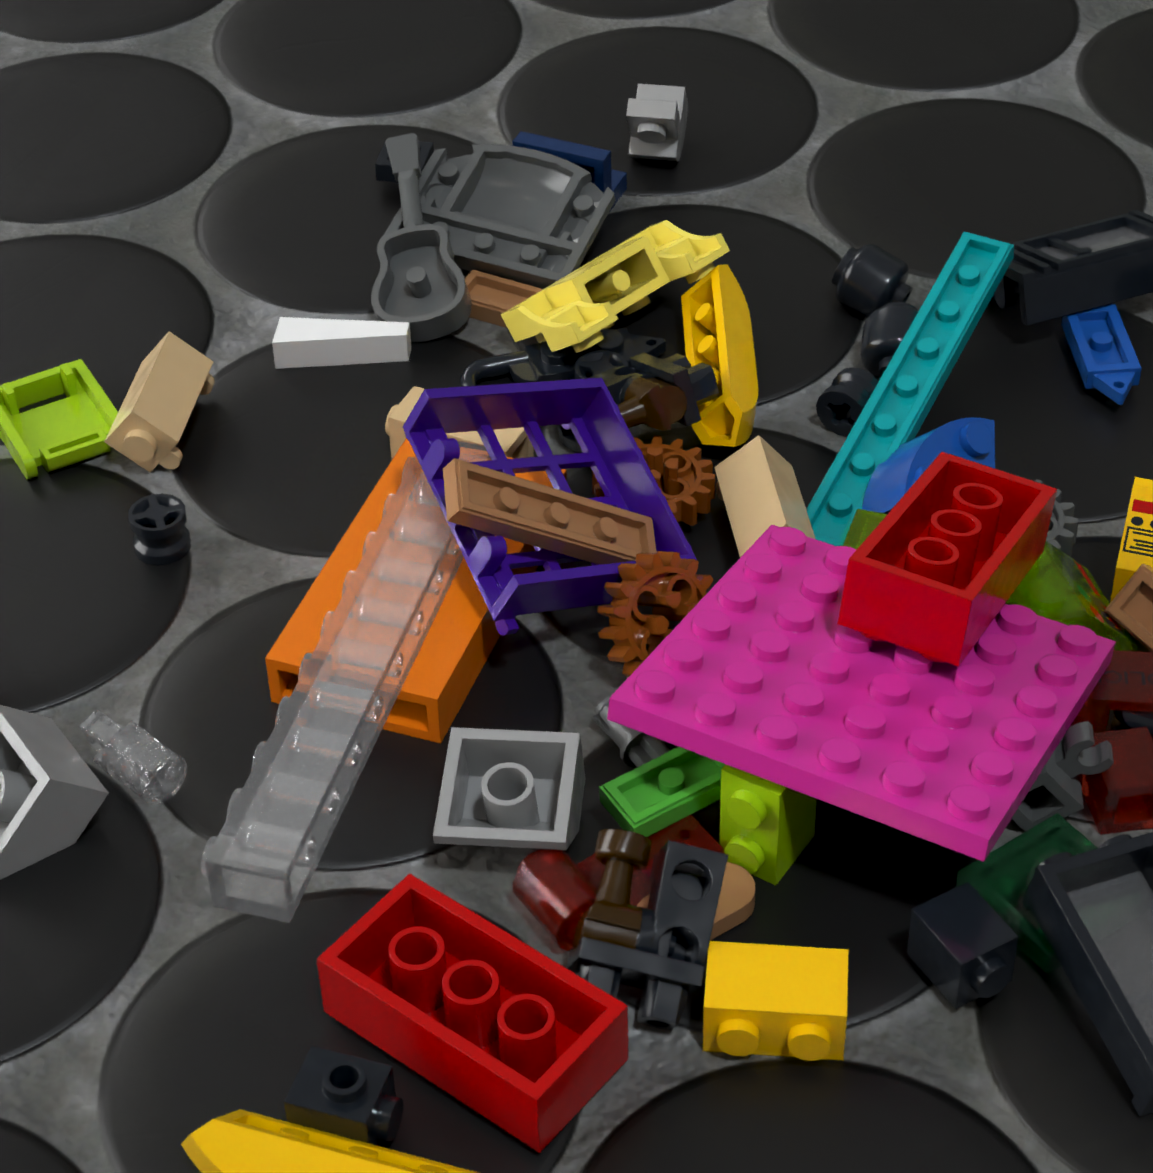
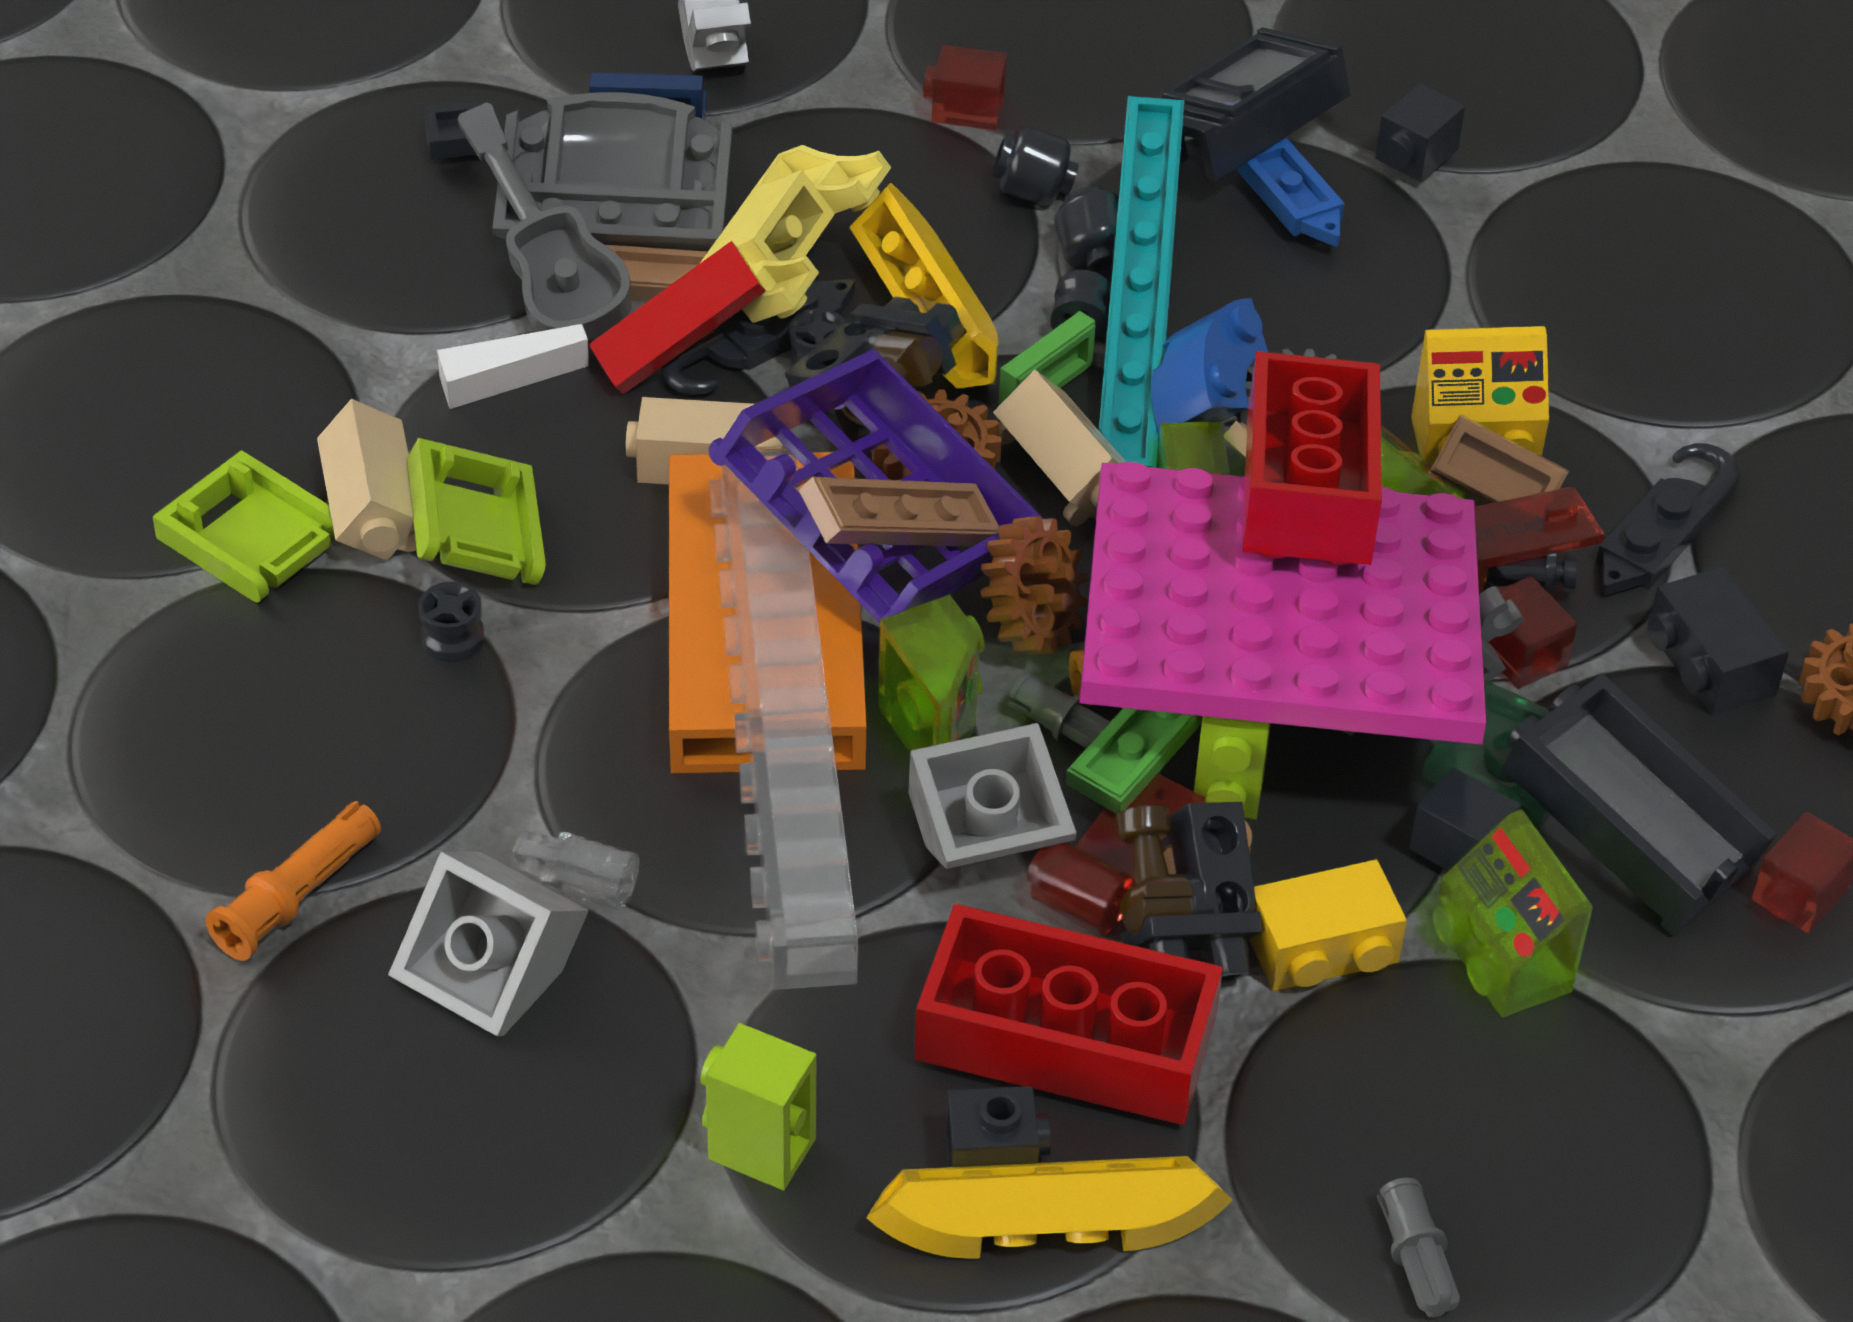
camera: 25 degrees left, 5 degrees up
(136, 1007) = (760, 1105): none -> lime brick
(222, 458) = (471, 527): none -> lime container
(483, 331) = (677, 317): none -> red tile
(522, 665) = (930, 673): none -> clear neon green slope
(802, 436) = (1056, 356): none -> bright green tile
(849, 210) = (967, 87): none -> clear red brick
(958, 1049) = (1514, 917): none -> clear neon green slope

